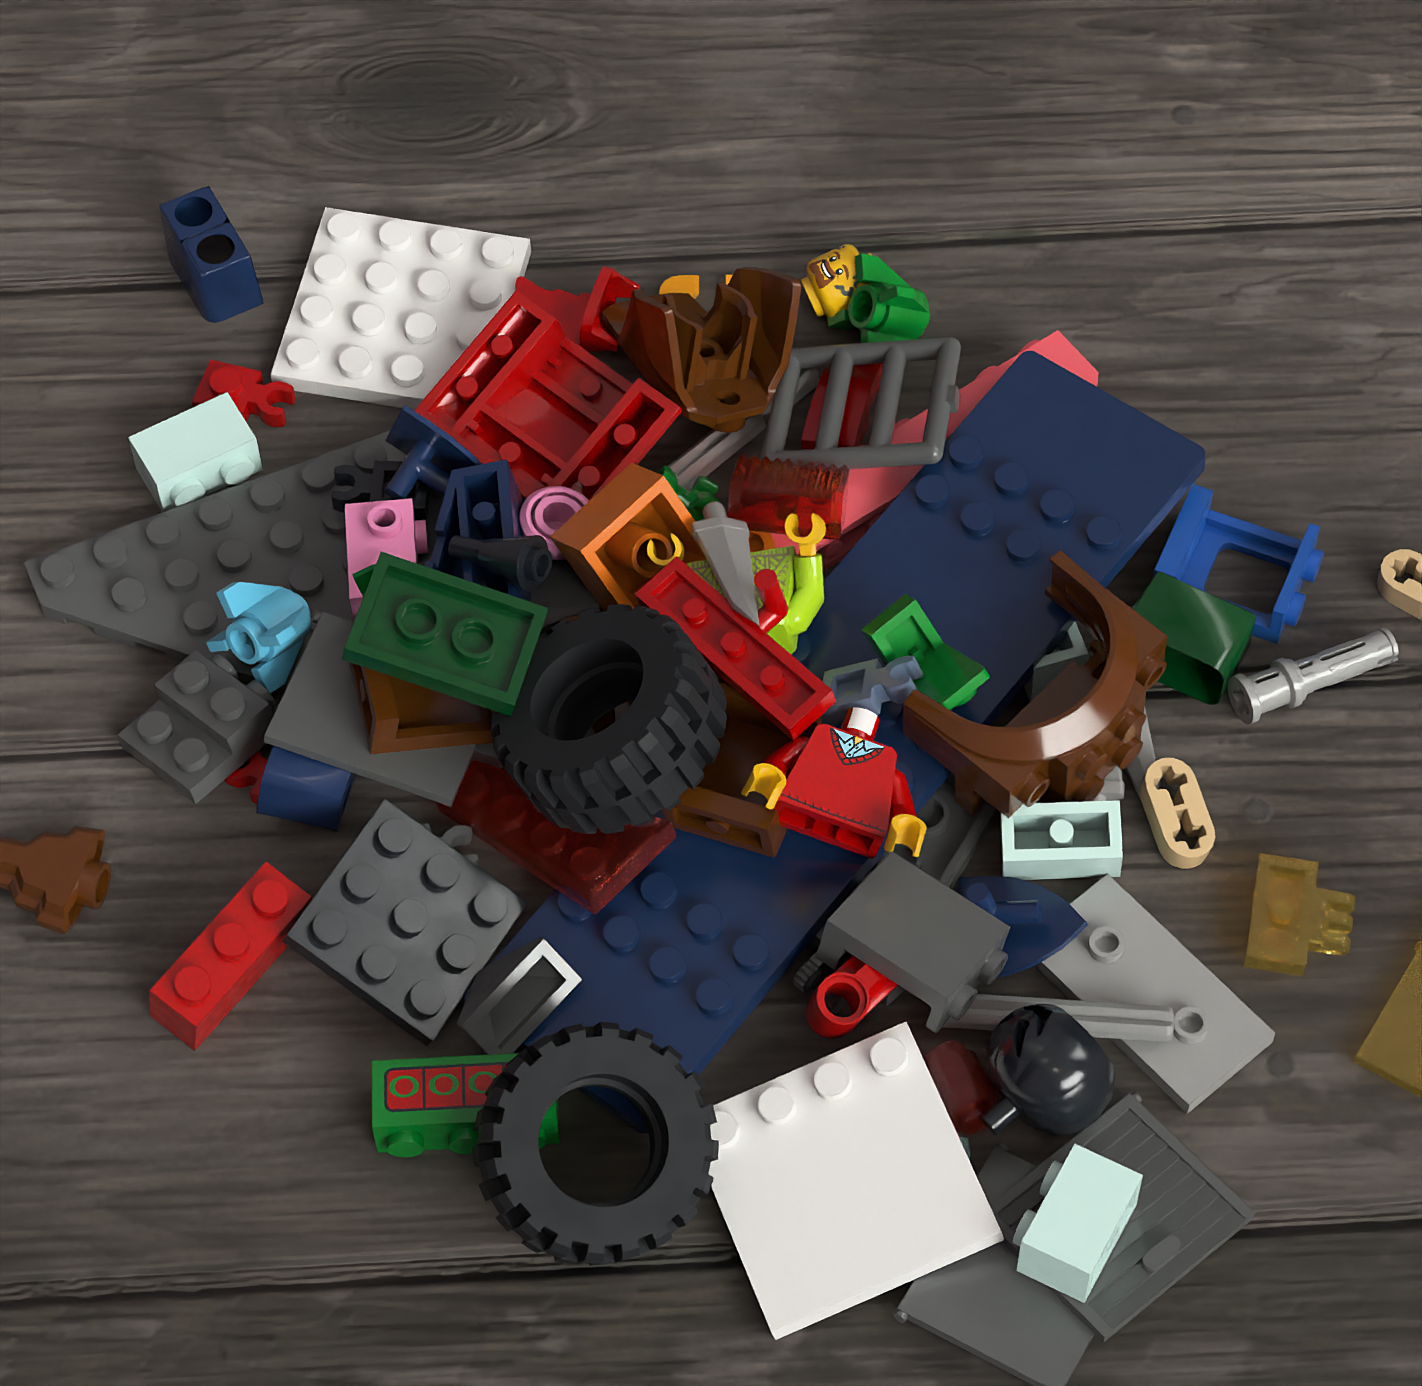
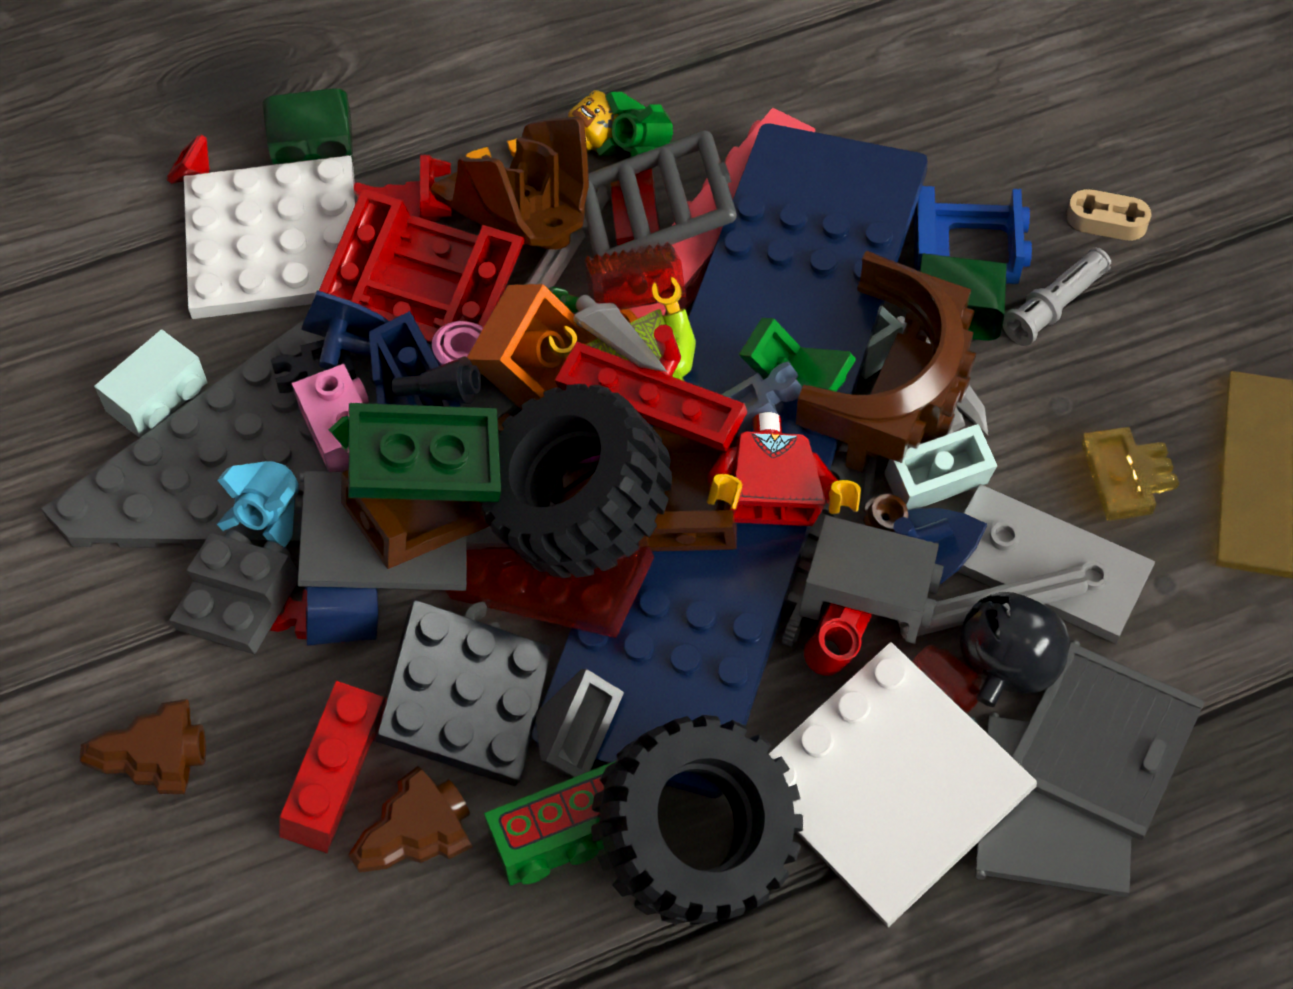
camera: 20 degrees left, 0 degrees up
(215, 289) = (118, 257): dark blue piece -> none
(246, 391) = (172, 322): red plate -> none
(296, 1050) = (414, 825): none -> reddish brown rock
(341, 191) = (191, 160): none -> red slope
(492, 188) = (308, 126): none -> dark green piece
(973, 861) = (885, 504): none -> reddish brown plate
(1077, 1221) = (1089, 754): light aqua brick -> none
(1188, 808) = (1009, 423): tan beam -> none

